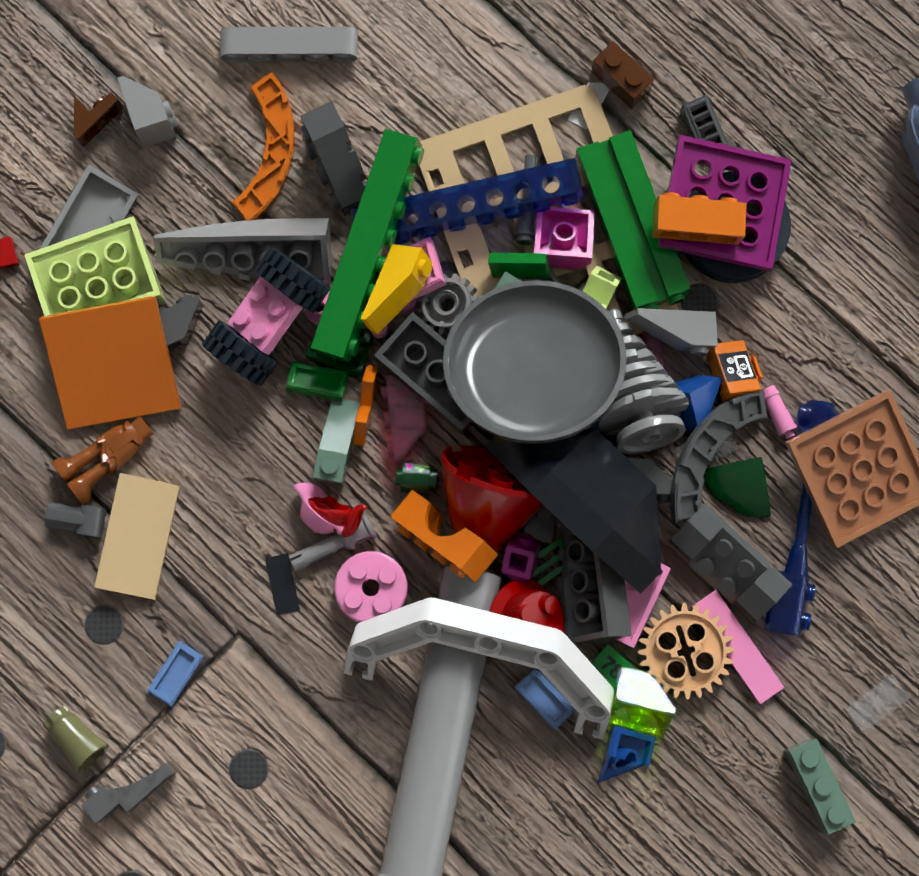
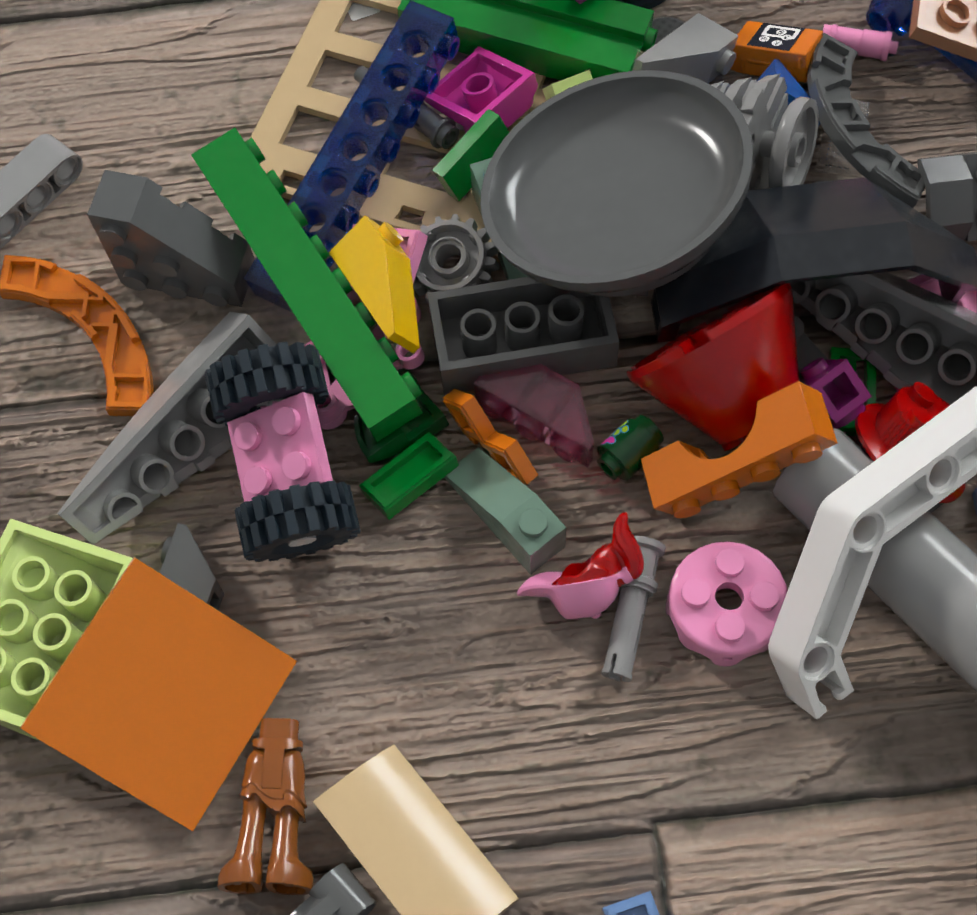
camera: 50 degrees left, 15 degrees down
(282, 583) = (630, 714): black sticker -> none
(741, 486) = (920, 125): dark green brick -> none

